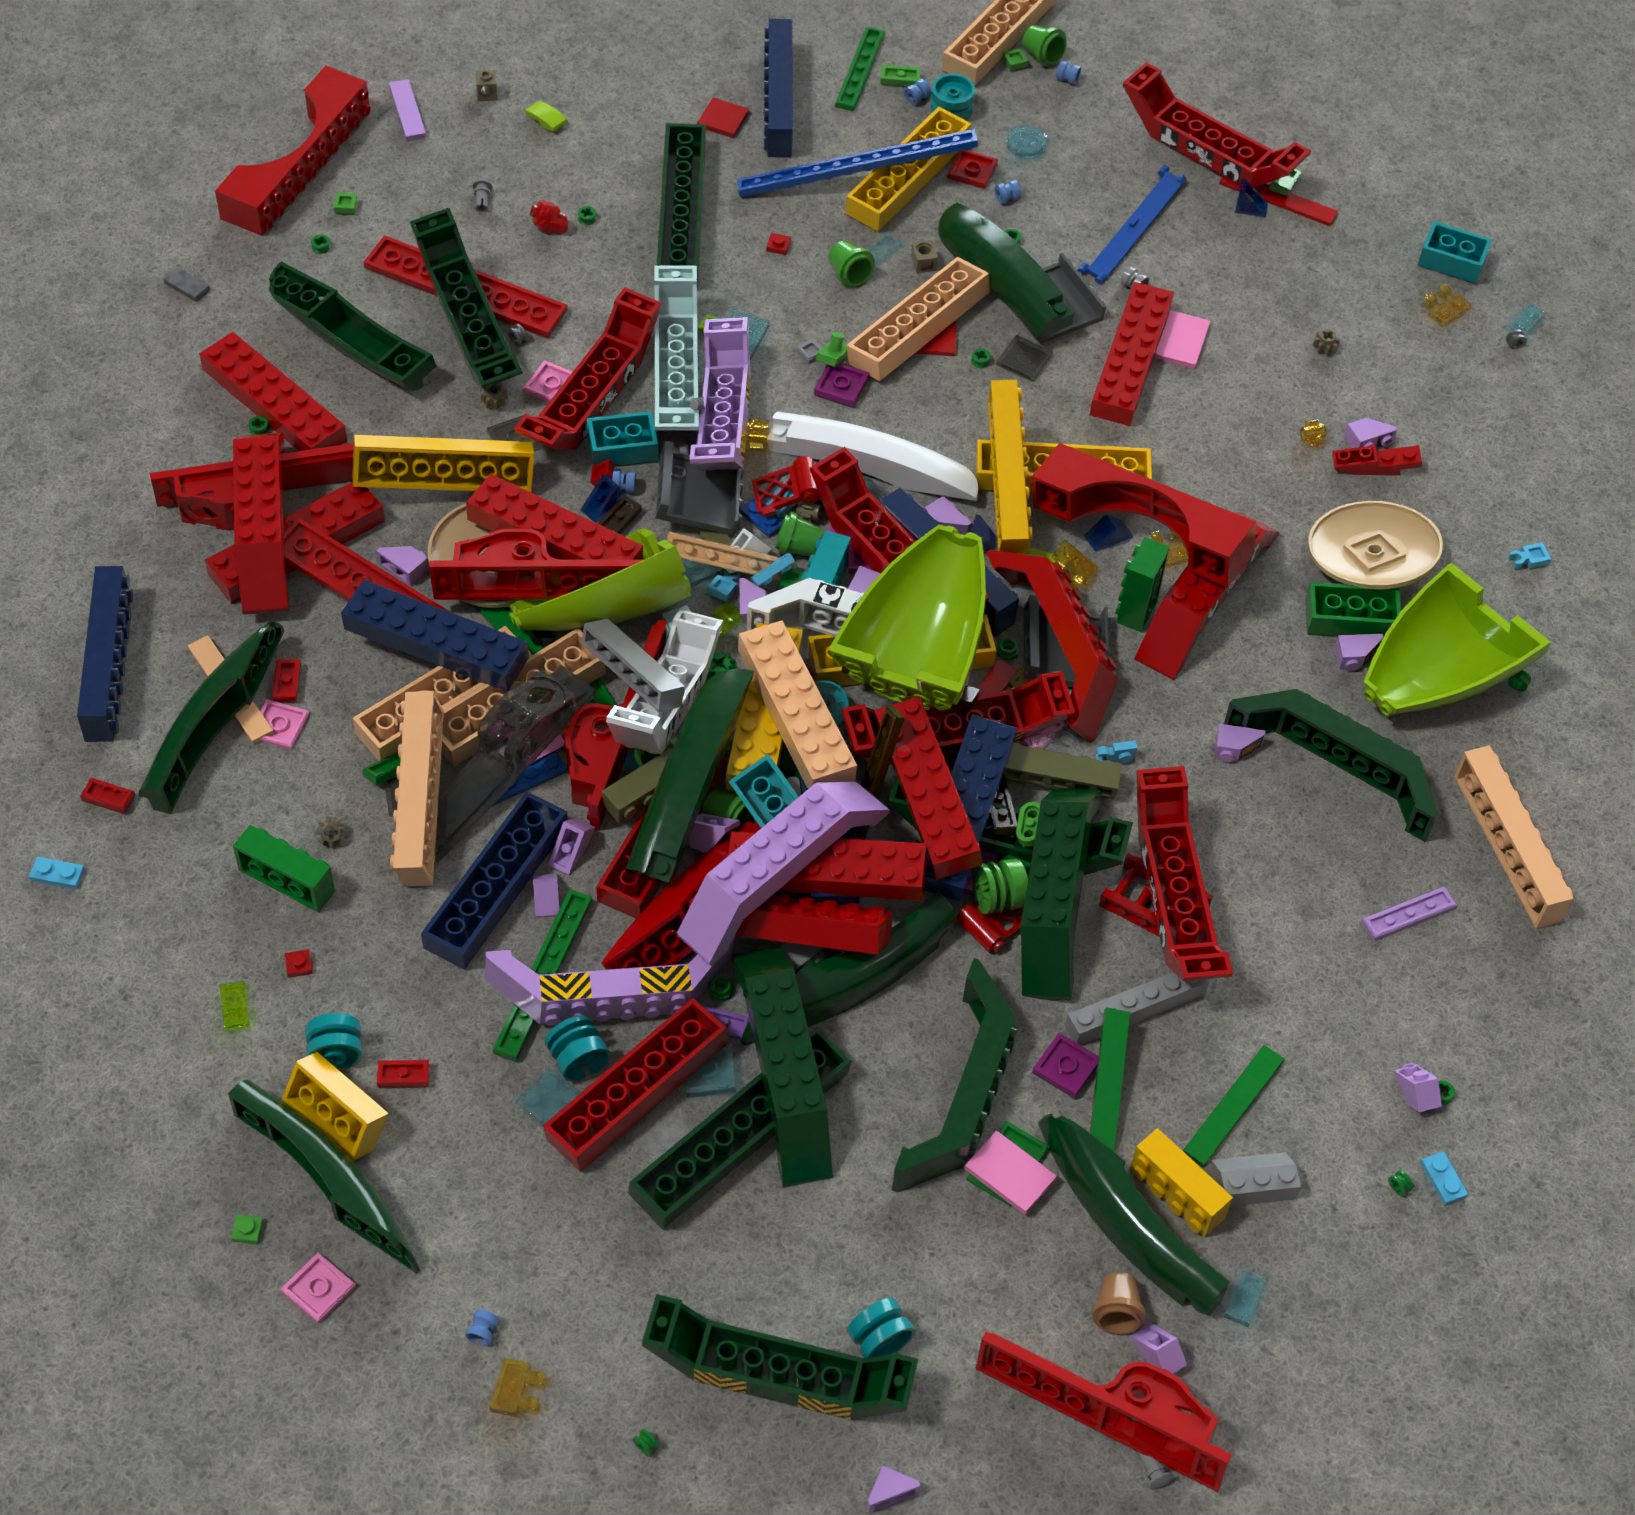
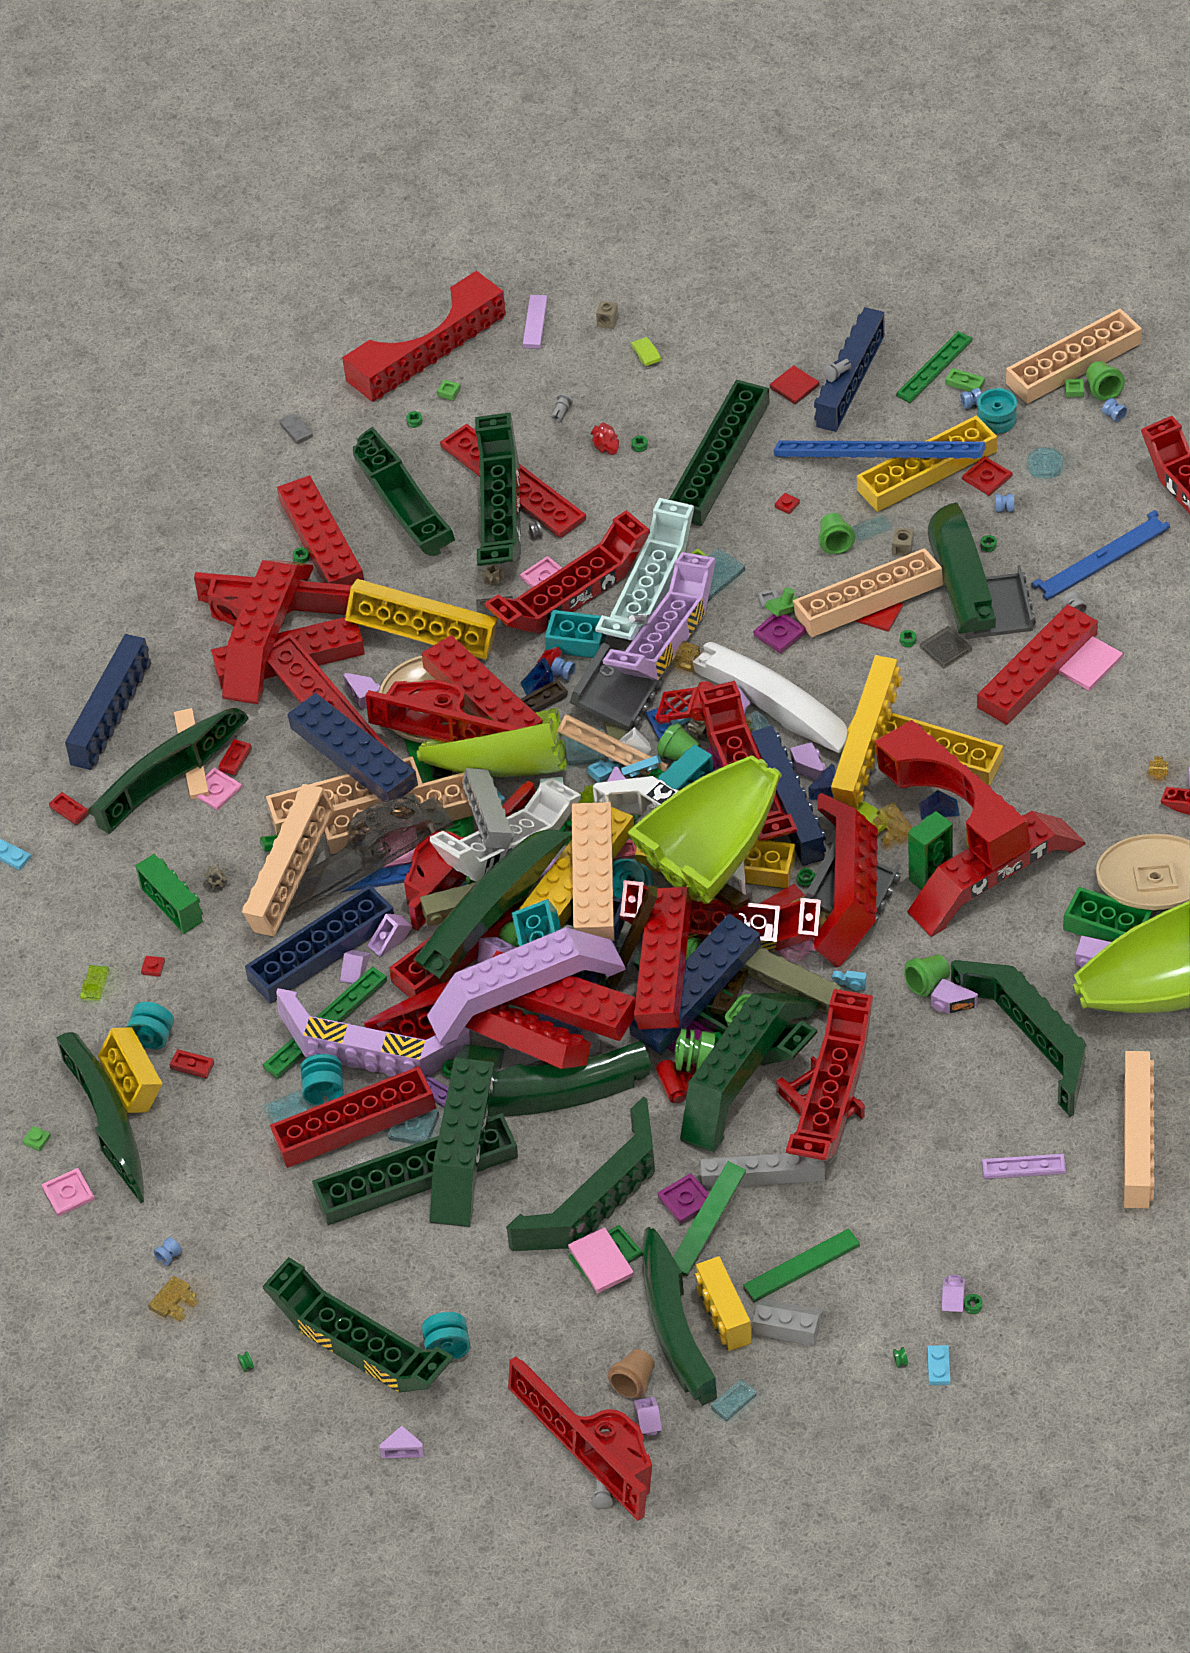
camera: 30 degrees right, 5 degrees down
(773, 91) = (834, 370): none -> light grey pin
(1197, 724) = (926, 973): none -> bright green piece

